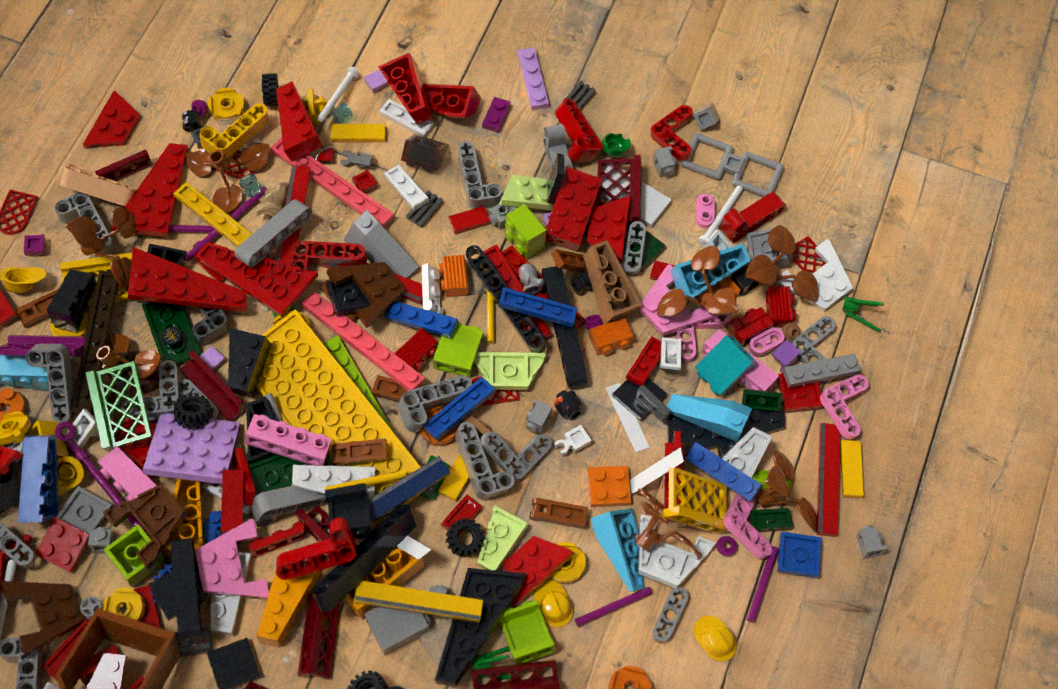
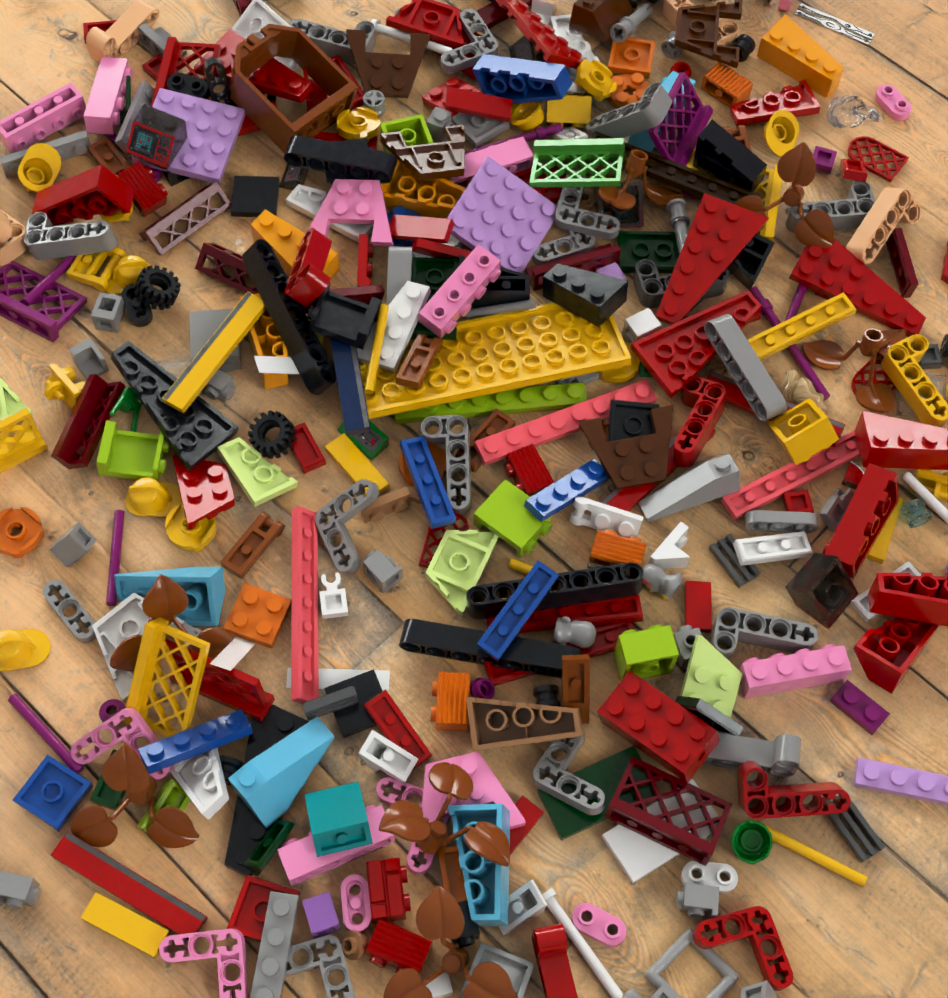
camera: 115 degrees right, 0 degrees up
(42, 218) = (853, 170): none -> red tile
(65, 438) = (571, 120): magenta plate -> none
(73, 511) = (478, 104): none -> red tile
(142, 323) = (679, 220): none -> light grey pin
(172, 337) = (651, 244): black tile -> none
(192, 419) = (552, 219): black tyre -> none
(250, 185) = (833, 377): clear light blue wheel -> none
(256, 318) = (640, 325): none -> white panel
(311, 185) = (803, 431): none -> yellow slope
(366, 137) = (864, 518): none -> red wedge
(383, 187) = (781, 521): none -> light grey beam
(438, 247) = (669, 553): none -> white slope
(464, 240) = (659, 581): none -> light grey animal
(480, 460) = (356, 470): light grey beam -> none
(492, 150) = (794, 671): none -> bright pink brick
(568, 404) = (382, 611): black head -> none
(587, 456) = (304, 607): none -> coral plate
(604, 112) = (817, 857): none -> yellow bar
(610, 224) = (610, 764): red wing -> none
(620, 639) = (72, 544): none -> light grey panel
(647, 162) = (710, 875): none -> white plate

